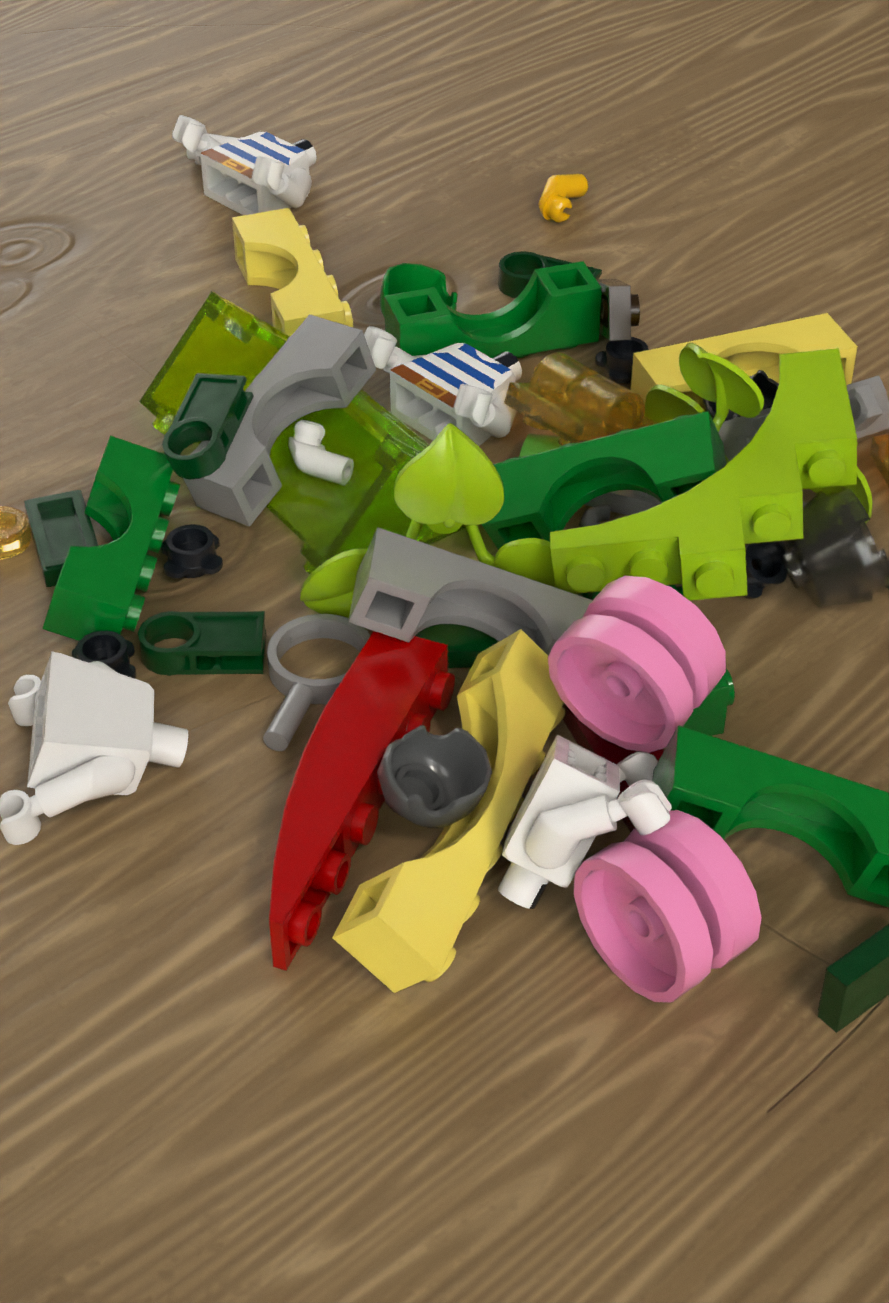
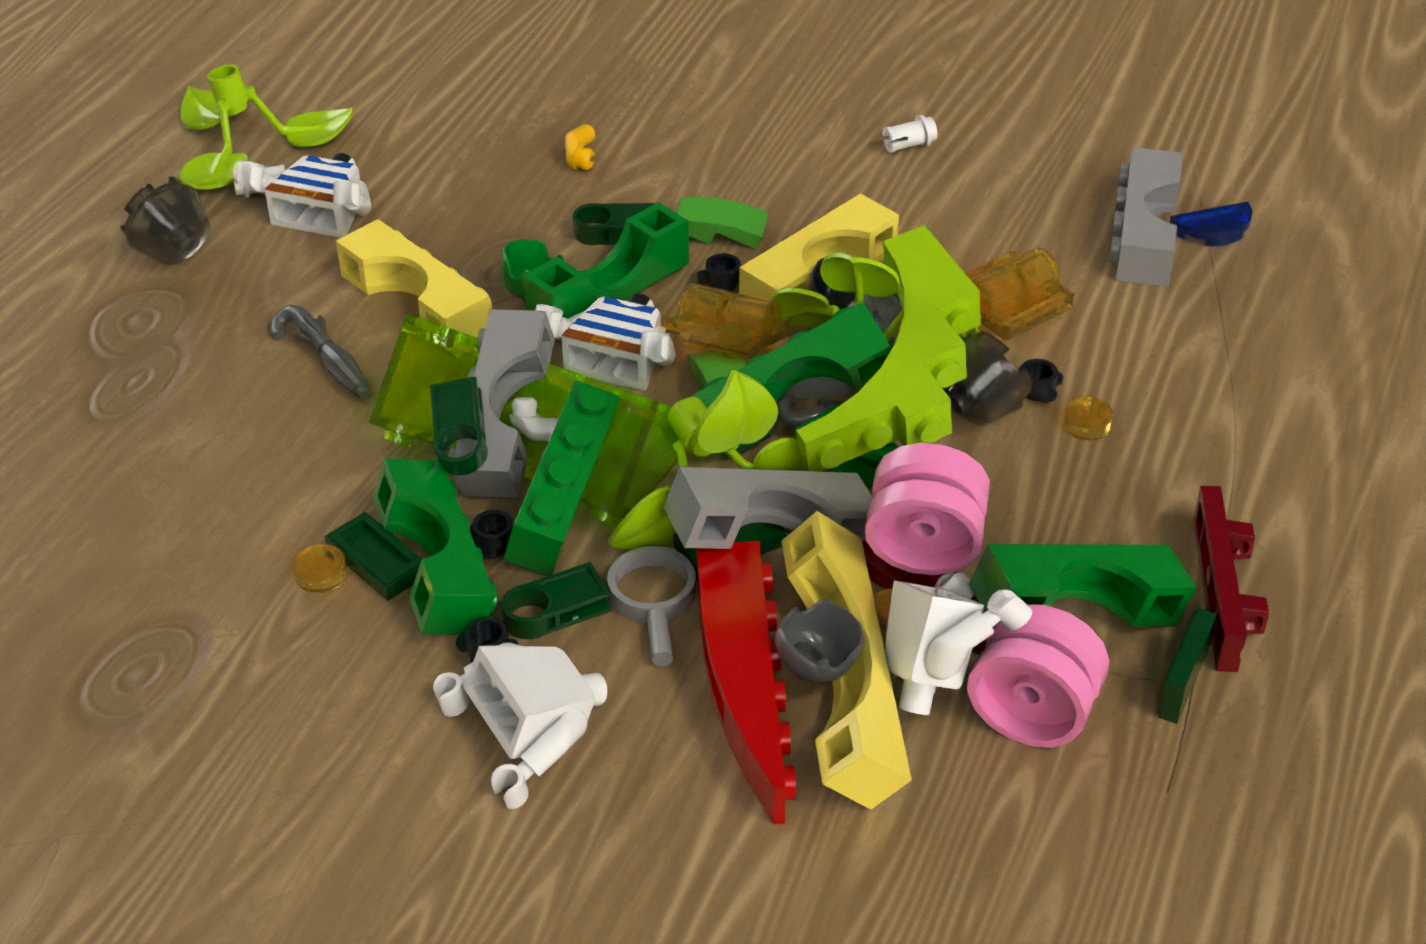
camera: 25 degrees left, 0 degrees up
(88, 159) = (166, 221): none -> clear smoke cone
(161, 304) = (313, 331): none -> dark grey piece
(231, 65) = (229, 97): none -> lime plant
(245, 542) = (561, 478): none -> green arch
(618, 310) = (706, 235): dark brown plate -> none
(671, 306) = (722, 216): none -> bright green slope

